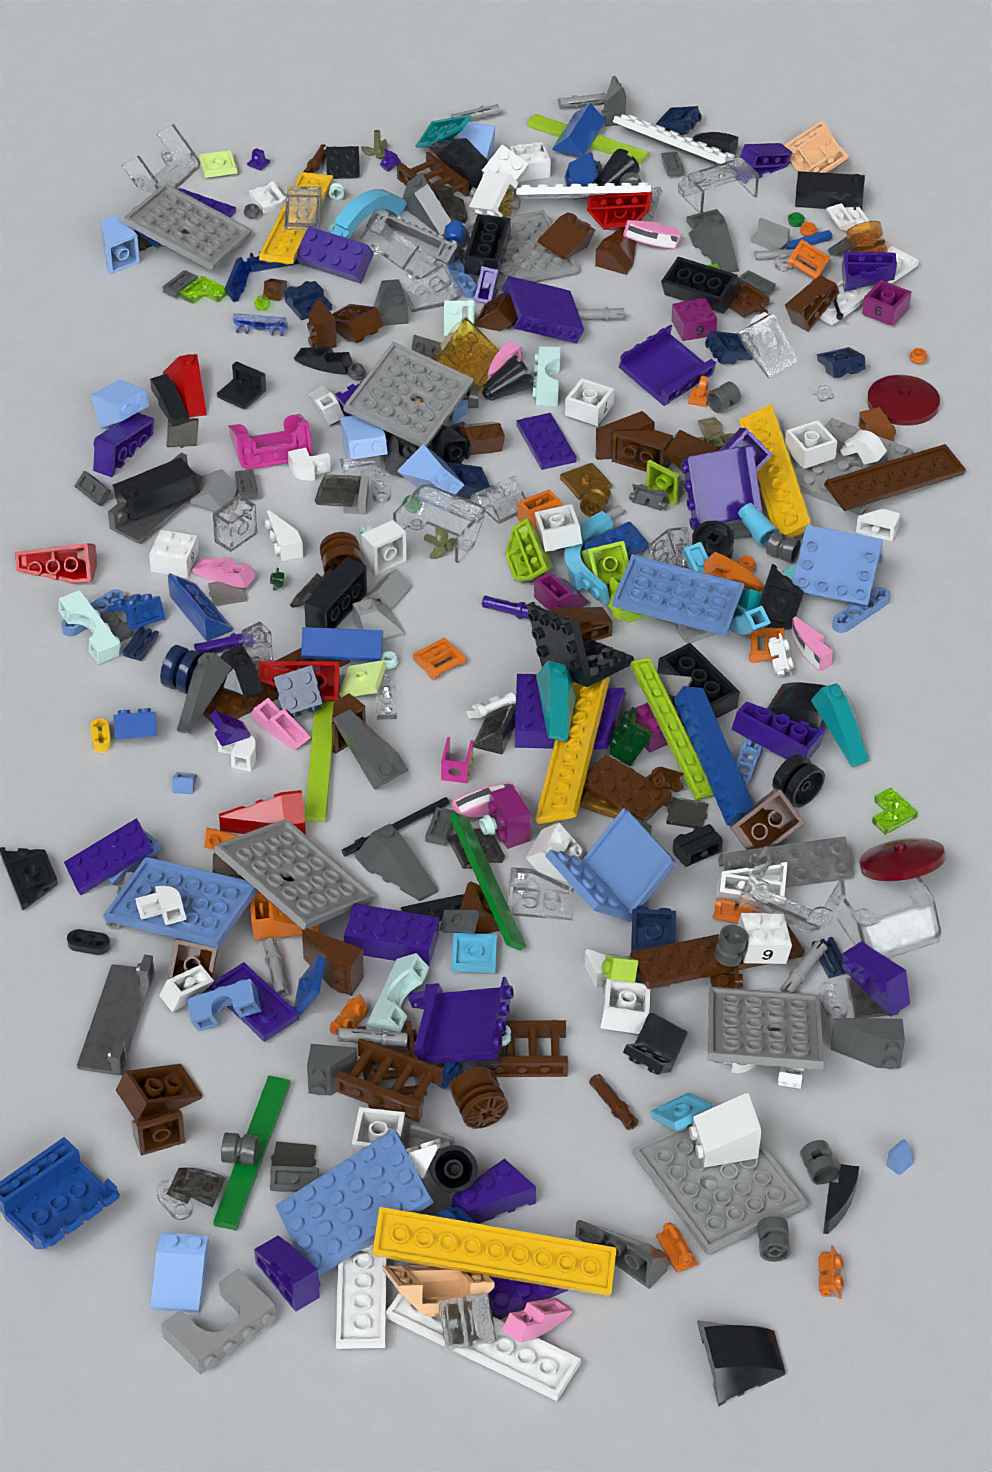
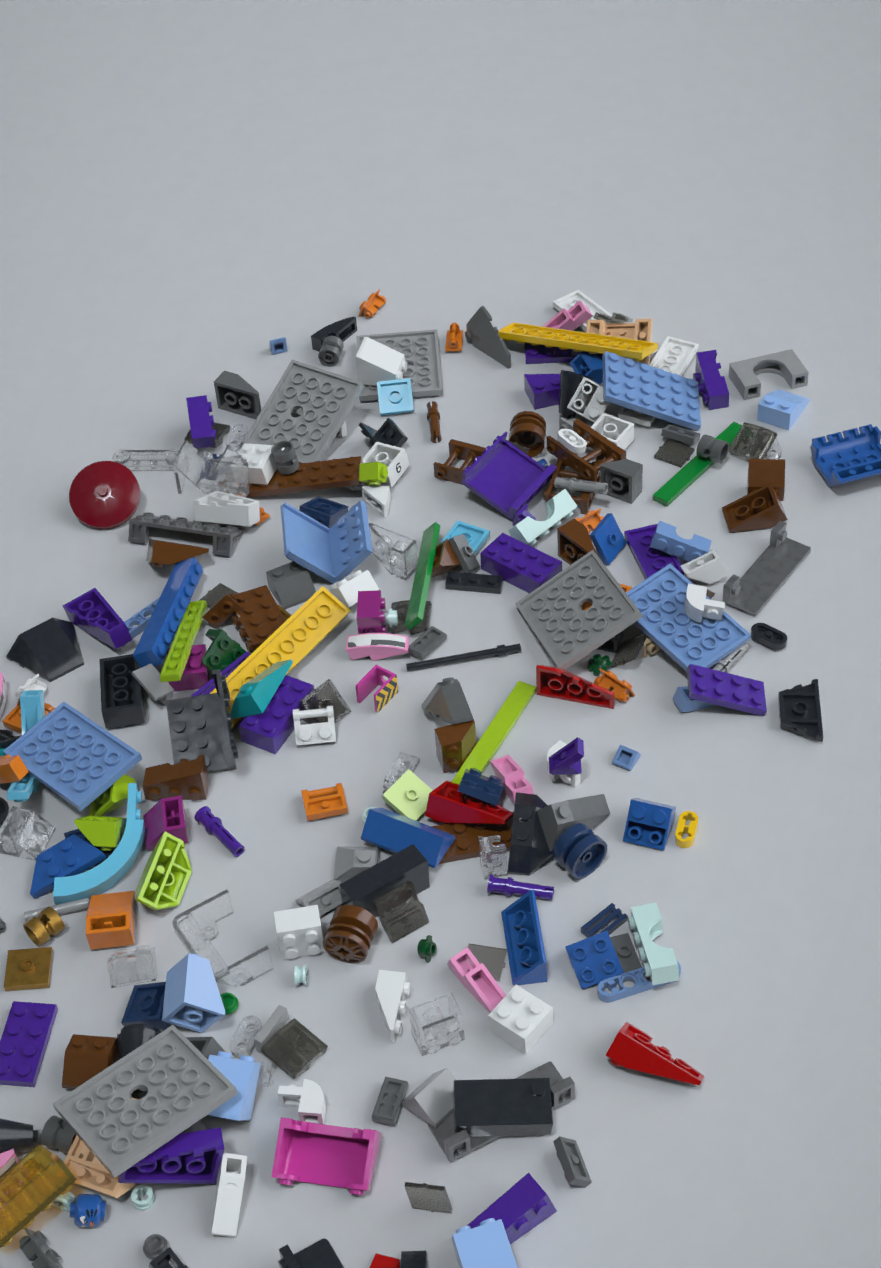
camera: 150 degrees left, 0 degrees up
(274, 960) = (625, 568): light grey pin -> none
(391, 858) = (483, 625): dark grey wedge -> none
(409, 1066) = (572, 441): none -> white plate
(441, 542) = (233, 928): olive plant -> none
(558, 528) = (118, 870): white brick -> none
(697, 845) = (238, 563): black brick -> none
(740, 1357) = (457, 285): black wedge -> none
(774, 1239) = (393, 321): dark grey wheel -> none
(799, 780) = (122, 574): black wheel -> none
(842, 722) = (41, 611): teal wedge -> none
(896, 811) = (66, 547): clear neon green plate -> none

